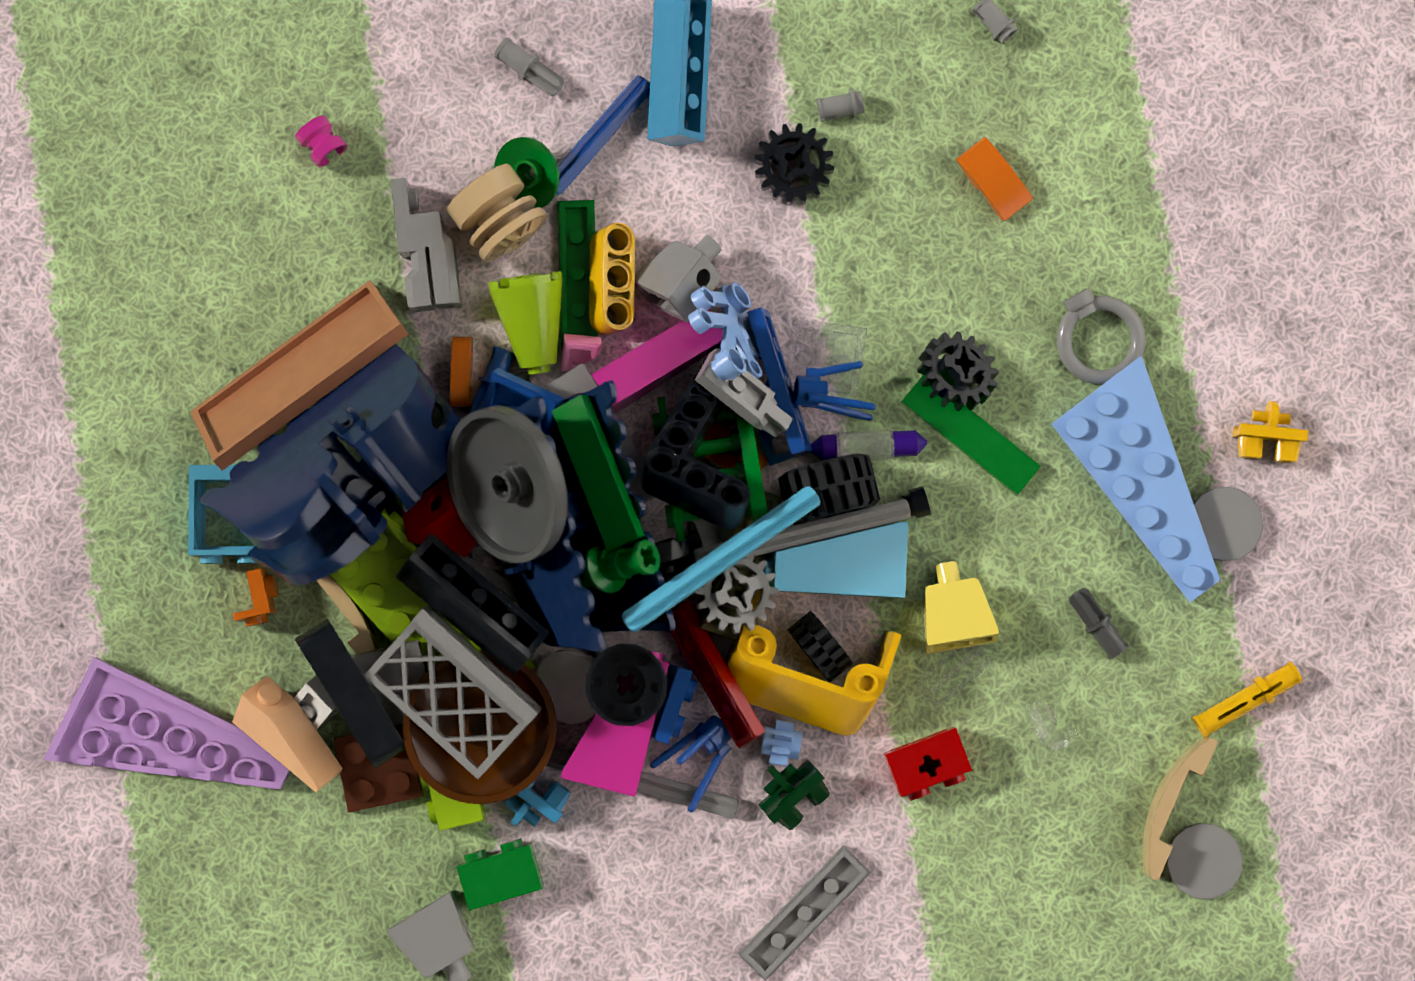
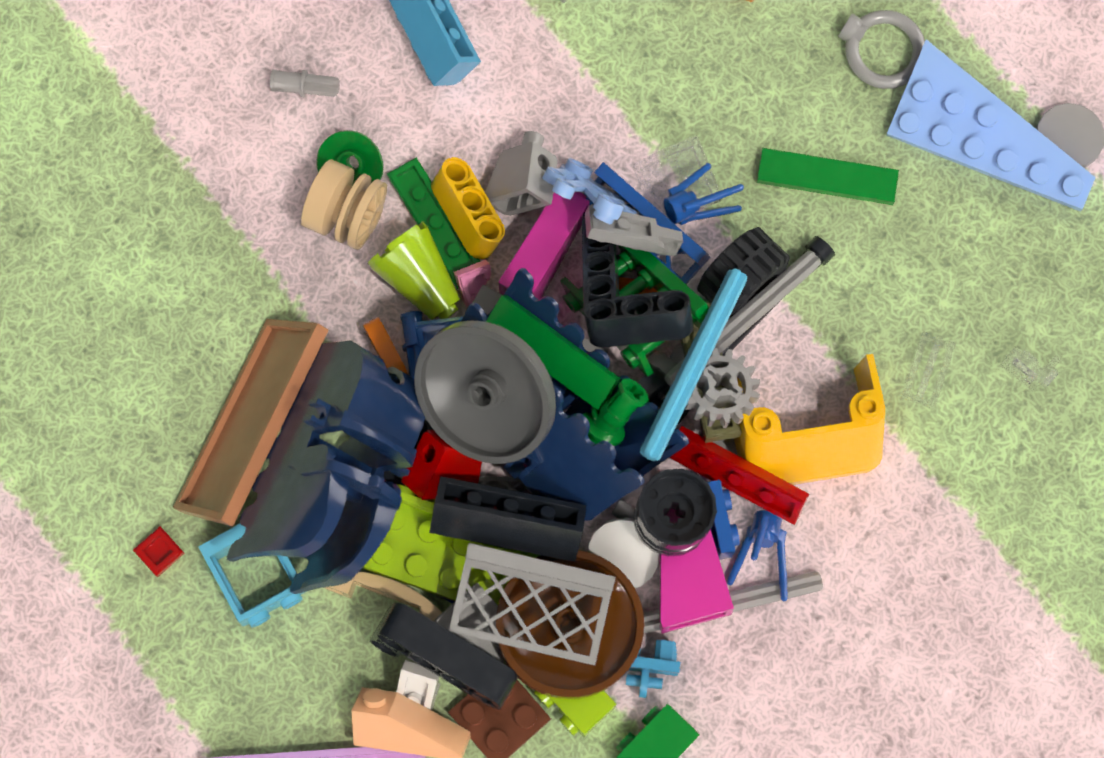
camera: 30 degrees left, 10 degrees down
(156, 445) = (158, 551): none -> red tile
(262, 590) = (319, 619): orange bracket -> none
(319, 139) = (163, 228): dark pink wheel -> none
(418, 237) = (290, 259): light grey plate -> none
(602, 131) = (392, 99): blue axle -> none
(781, 742) = (826, 502): light blue gear -> none
(788, 789) = (854, 537): dark green hips -> none
(804, 913) = (927, 635): light grey tile -> none
(809, 173) = (547, 43): black gear -> none
(820, 646) = (810, 403): black tyre -> none
(849, 564) = (795, 327): medium azure slope -> none
(875, 443) = (765, 217): piece -> none
(940, 746) = (967, 436): red brick -> none
(956, 612) = (904, 319): light yellow torso -> none
(957, 371) = (789, 130): black gear -> none
(1097, 623) = (1019, 267): dark grey axle -> none
(1286, 439) = (1060, 42): yellow hips -> none

